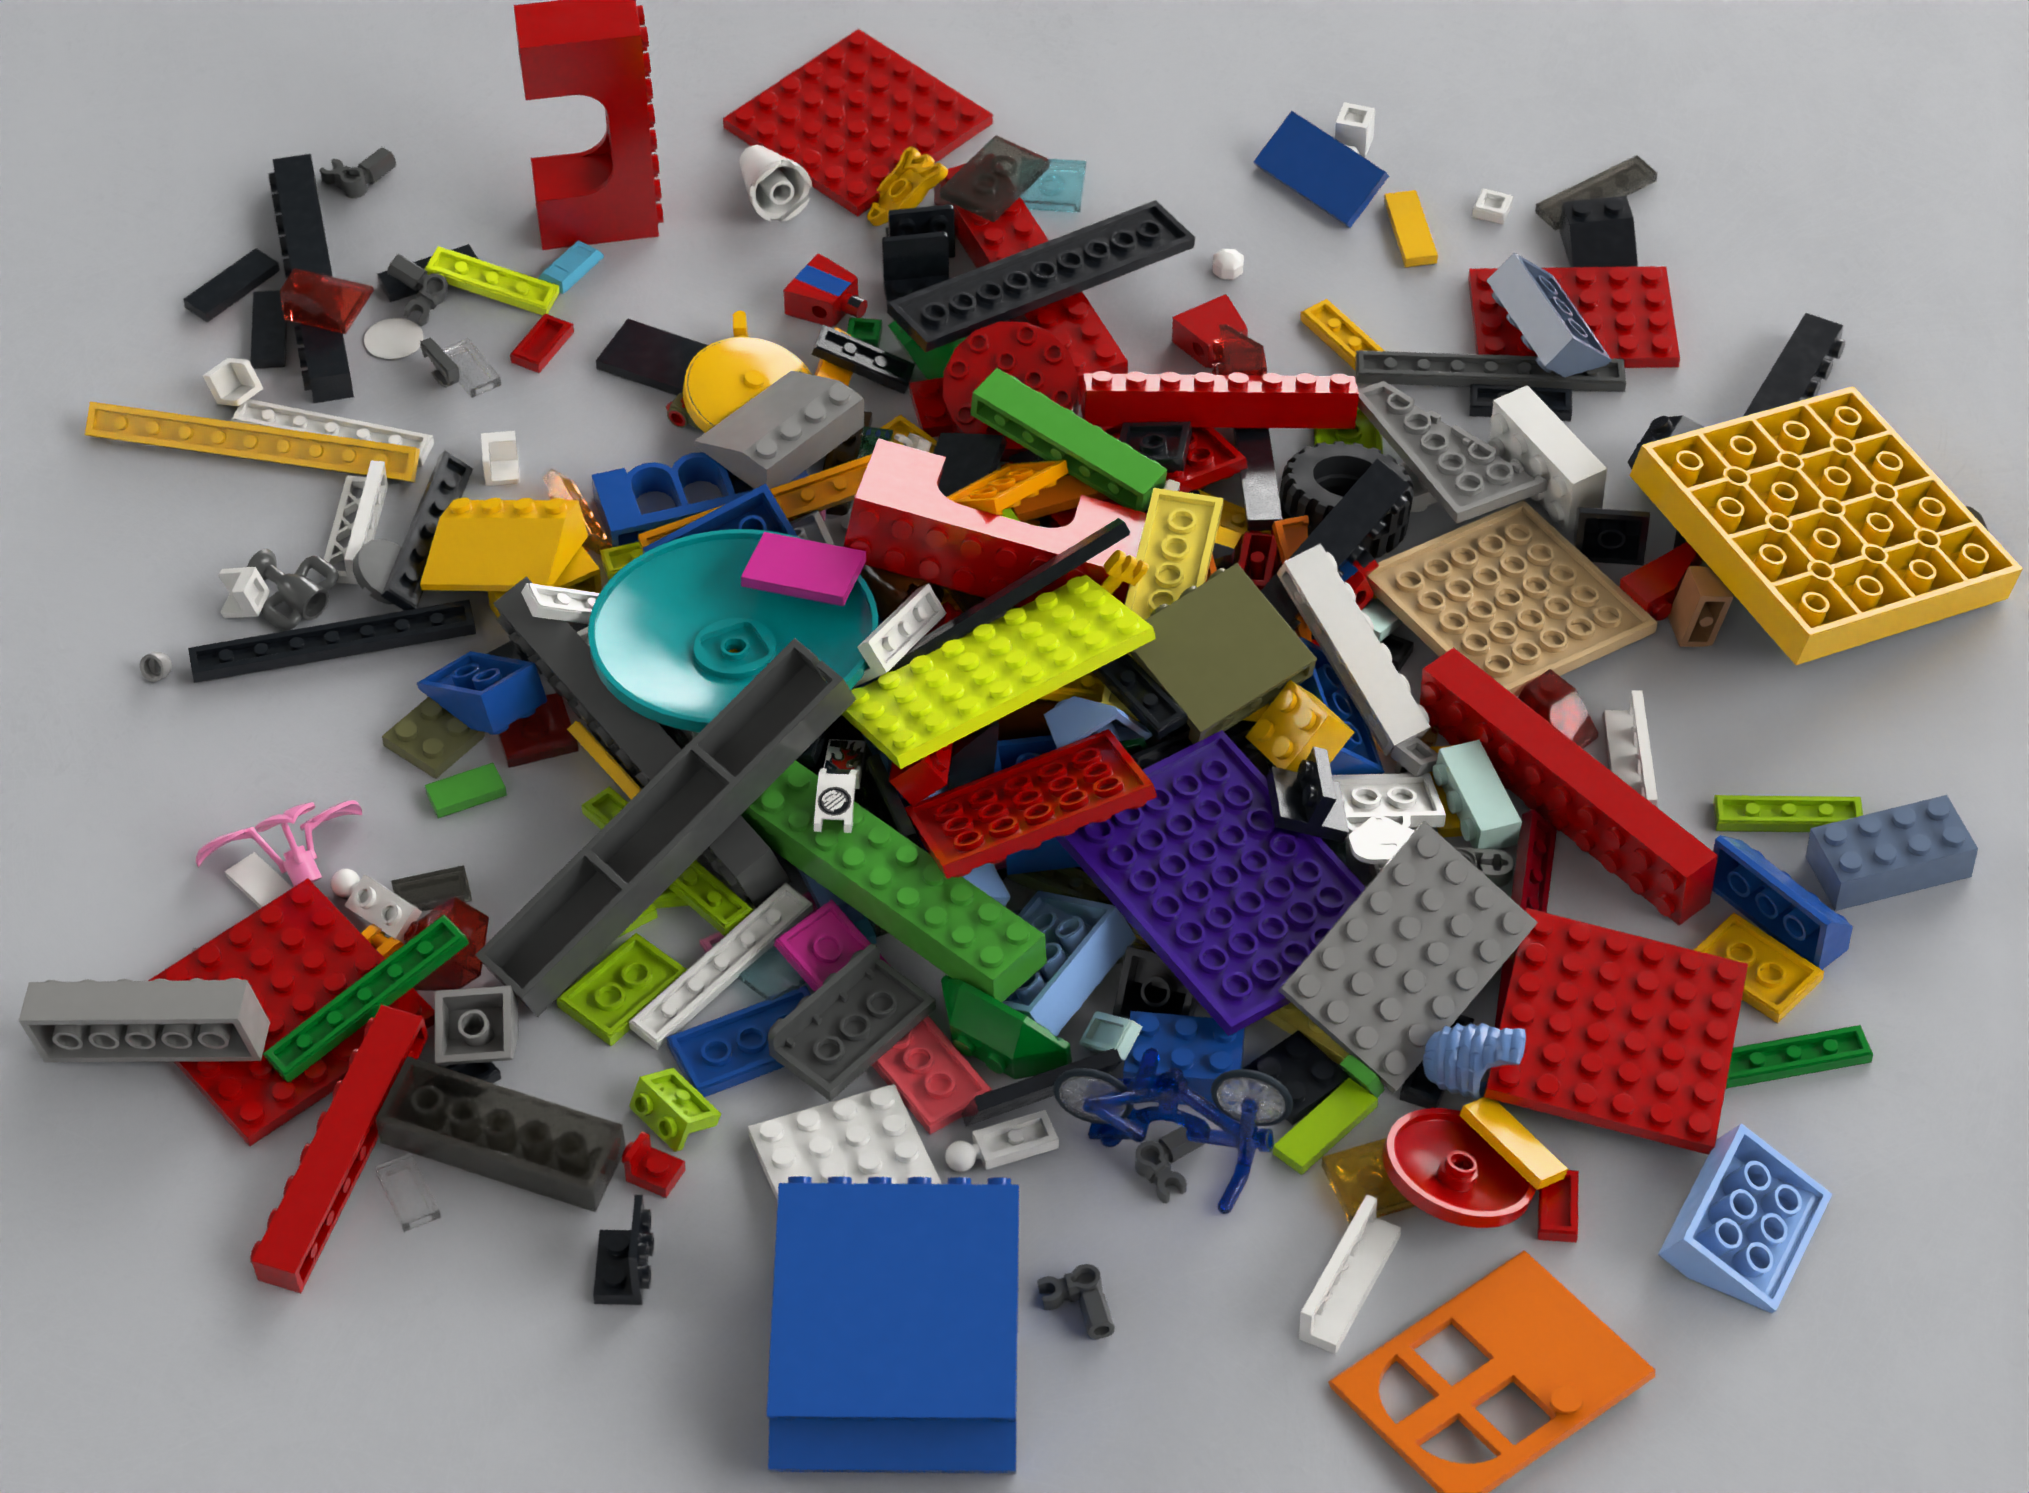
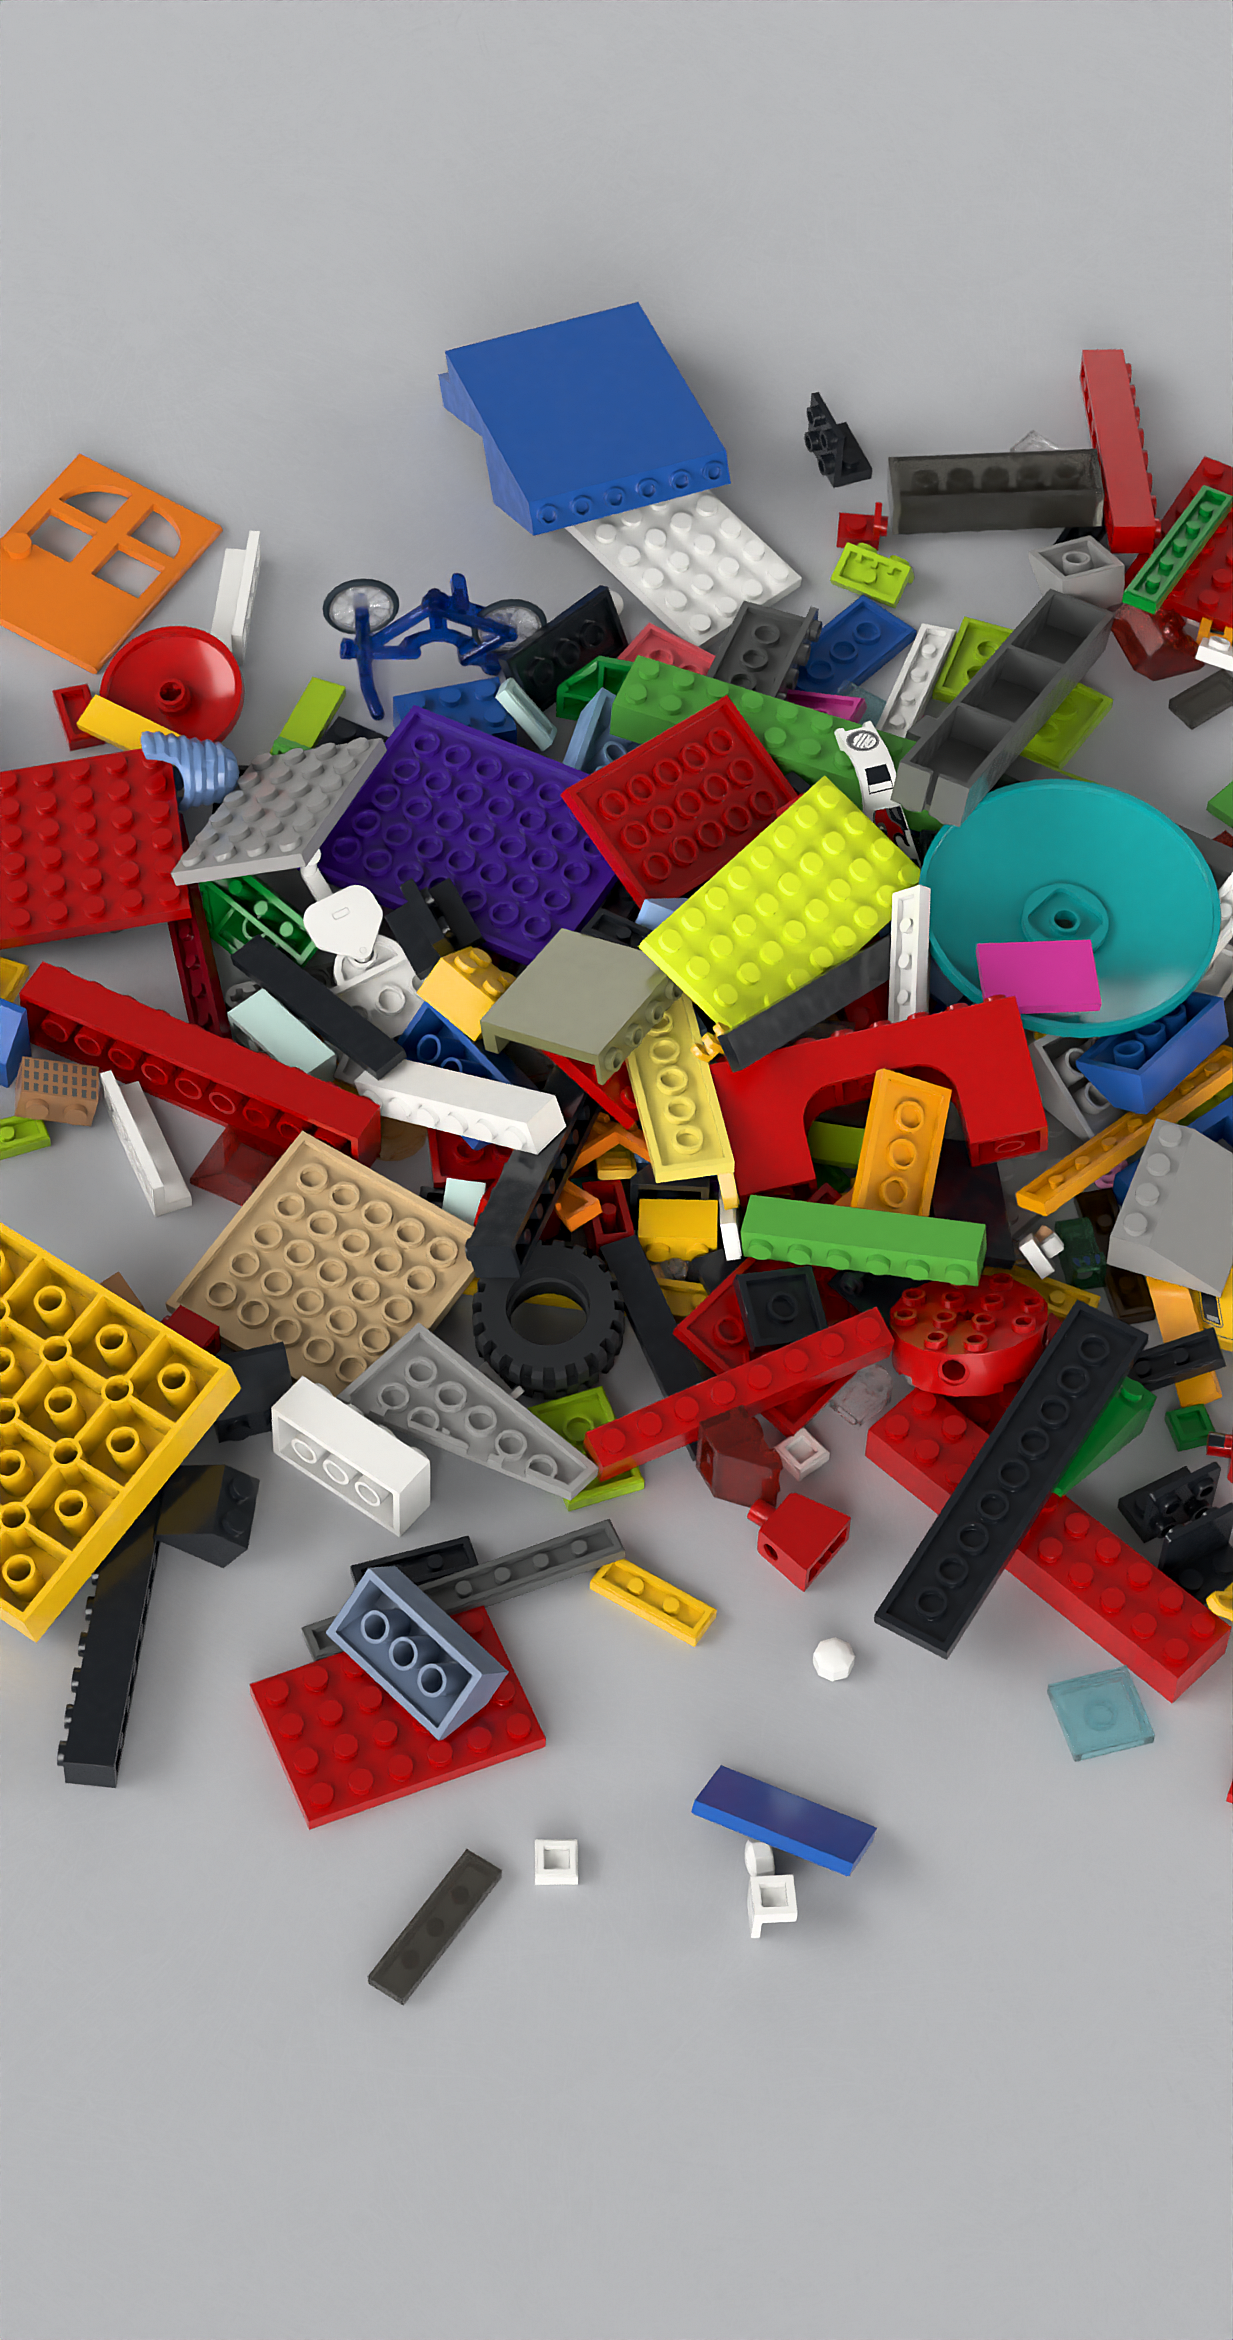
camera: 155 degrees right, 5 degrees up
(994, 178) = (1150, 1620): clear smoke tile -> none
(1081, 1285) = (453, 537): dark grey bar -> none
(1154, 1161) = (433, 663): dark grey bar -> none
(1362, 1173) = (265, 691): clear yellow plate -> none
(1410, 228) = (642, 1789): yellow tile -> none
(1435, 783) = (318, 1007): none -> black tile
(1599, 232) = (407, 1841): black slope -> none
(1703, 809) = (56, 1091): none -> medium nougat brick

